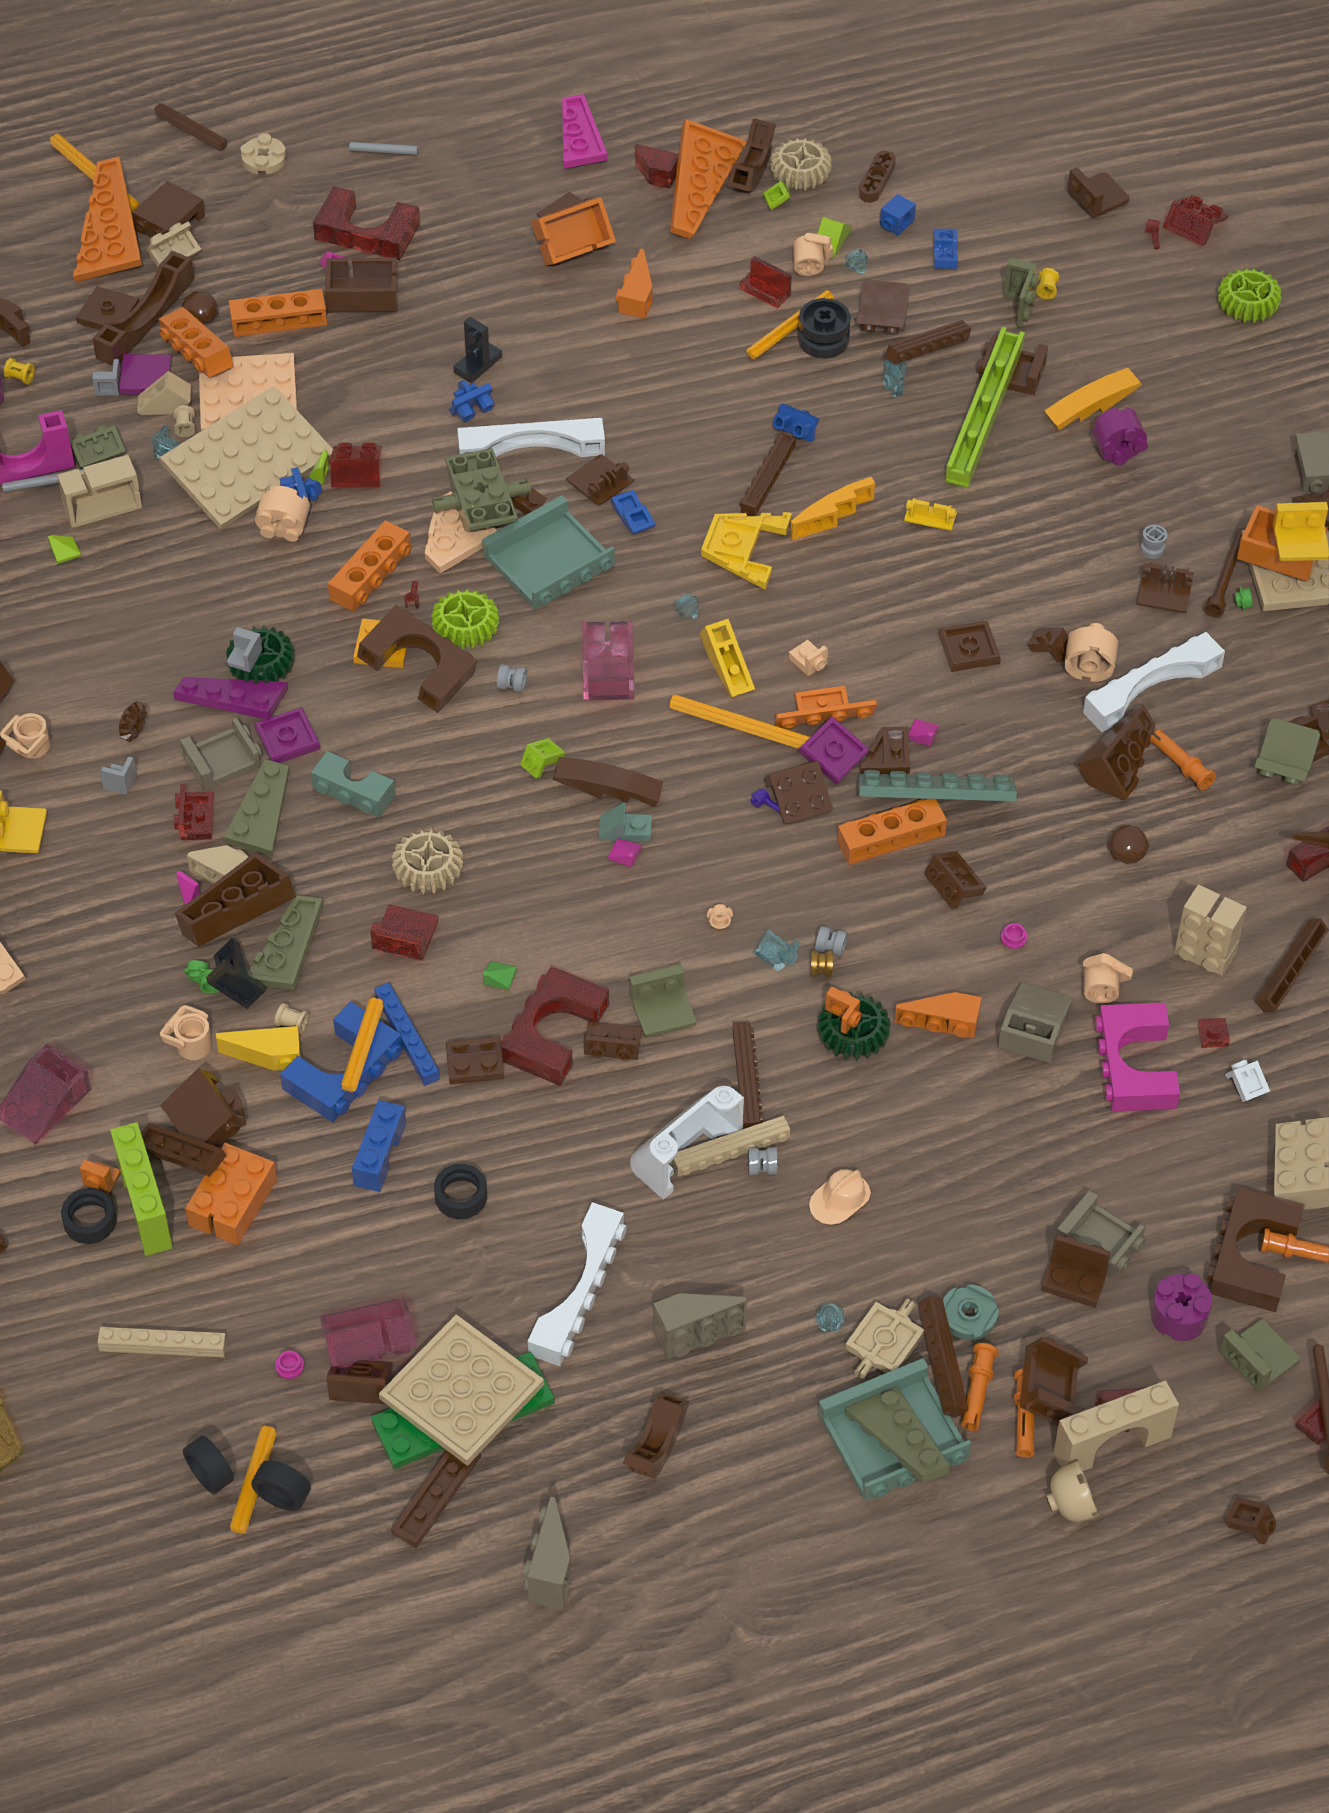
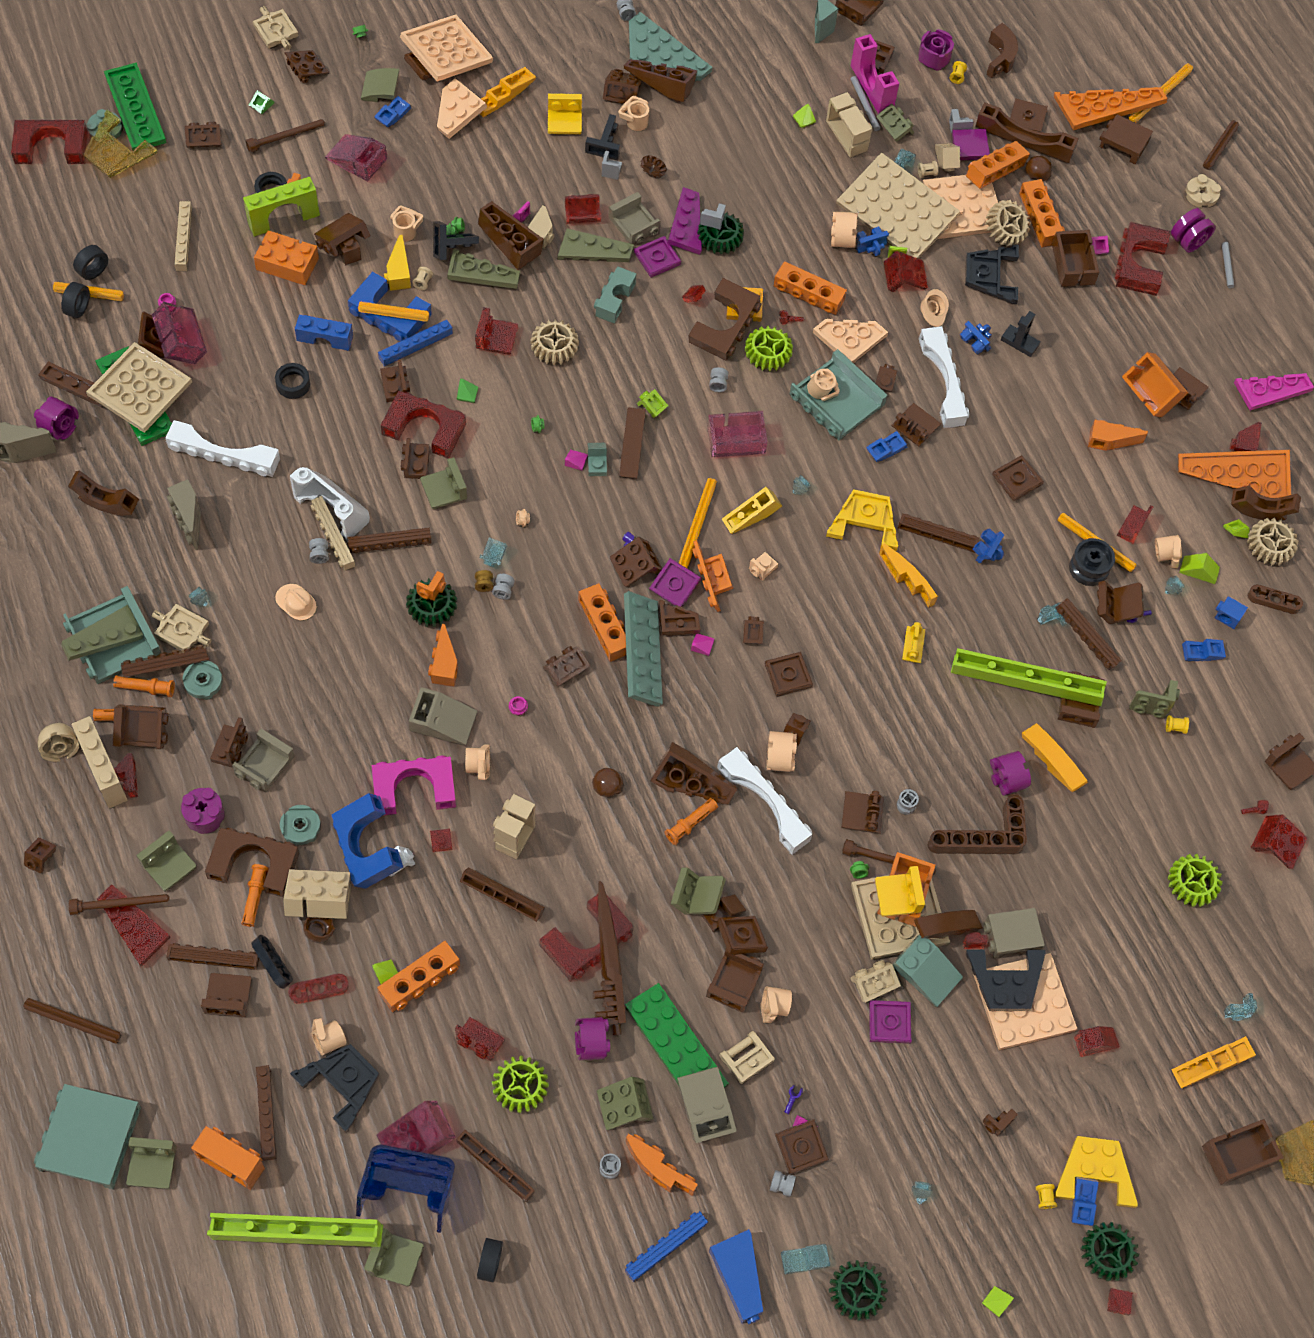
camera: 80 degrees right, 10 degrees up
(68, 778) = (598, 147): none -> black bracket
(177, 240) = (1091, 144): tan bracket -> none
(182, 1150) = (311, 223): reddish brown plate -> none
(296, 343) = (1000, 215): none -> tan gear
(337, 163) = (1193, 230): none -> magenta wheel
(362, 694) = (694, 293): none -> clear red plate
(366, 382) = (984, 272): none -> black wing
(421, 438) = (935, 307): none -> light nougat piece
(480, 491) = (876, 342): olive slope -> none
(508, 1507) = (57, 418): none -> magenta brick
(535, 562) = (821, 384): none -> light nougat piece
(564, 891) = (537, 424): none -> bright green plate
(692, 387) = (1017, 478): none -> reddish brown plate
(908, 672) = (753, 630): none -> reddish brown bracket
(1197, 1127) = (349, 825): none -> blue arch
(1197, 1207) = (292, 818): none -> sand green plate
(1202, 450) = (986, 836): none -> reddish brown beam

